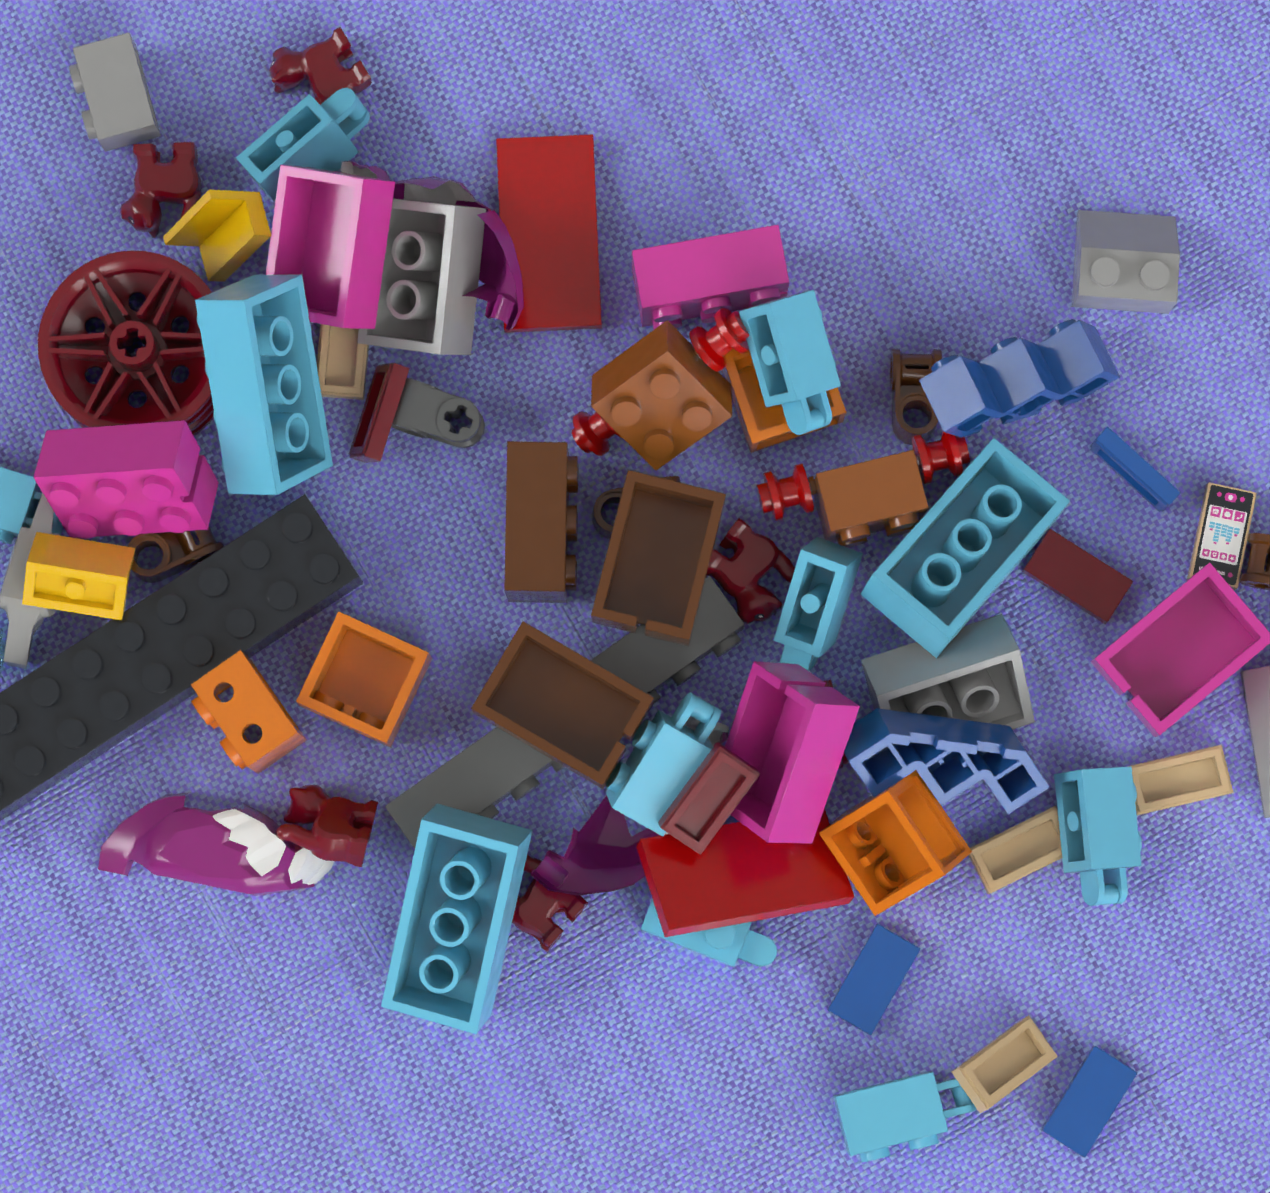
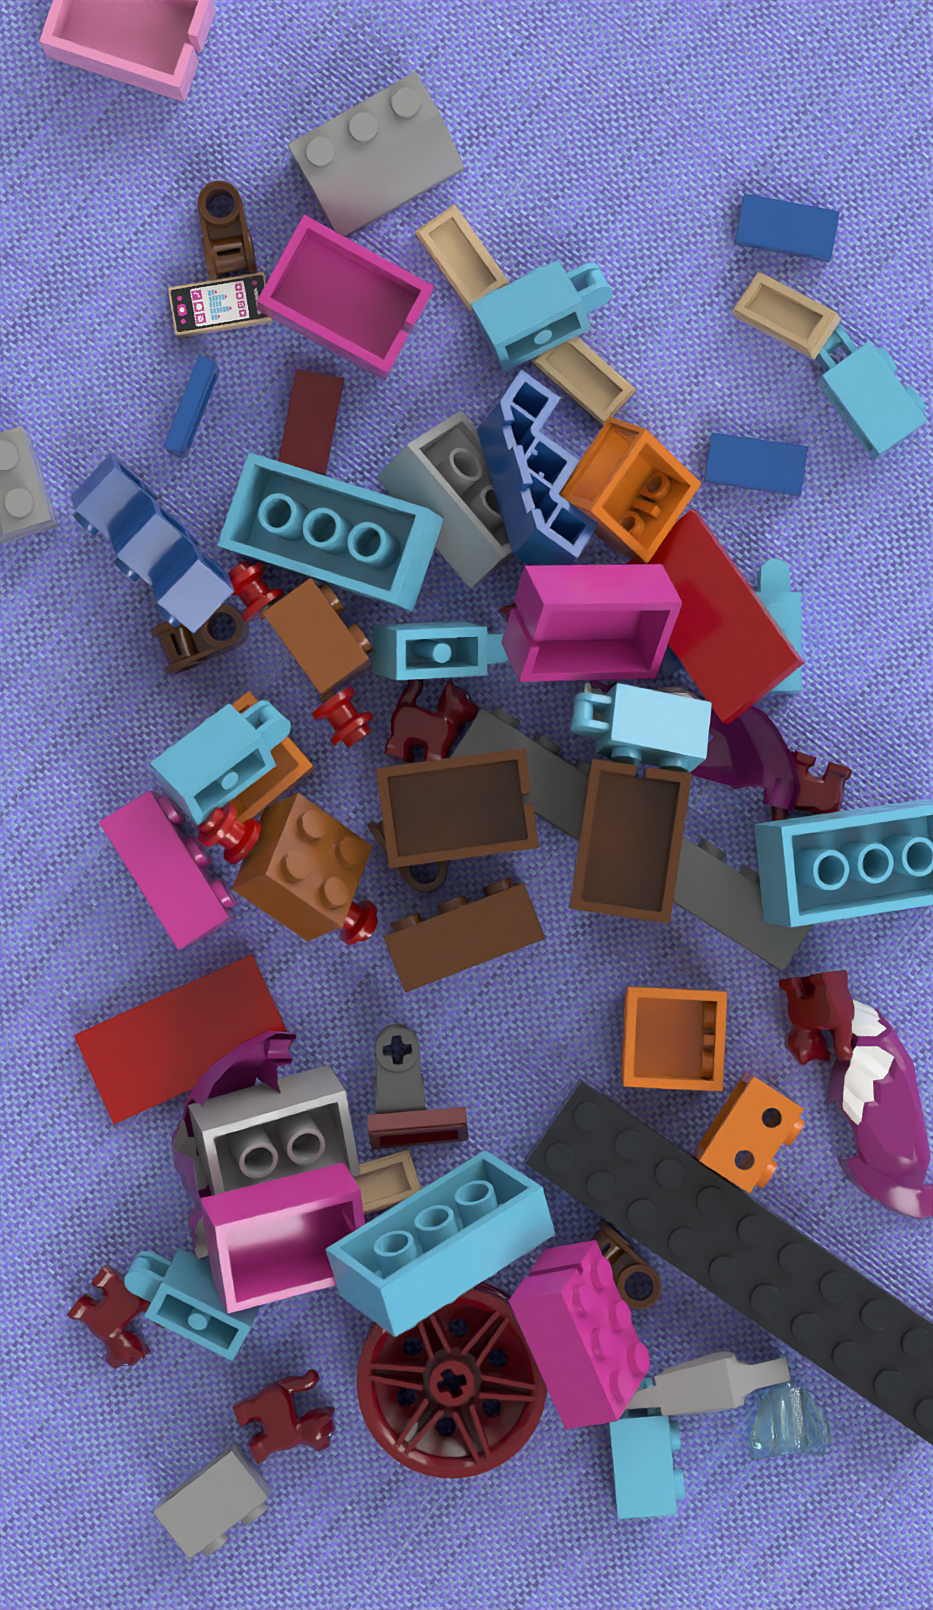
camera: 105 degrees left, 5 degrees up
(77, 575) = (687, 1342): yellow panel -> none
(225, 228) = (305, 1340): yellow panel -> none
(708, 798) = (661, 673): dark red tile -> none

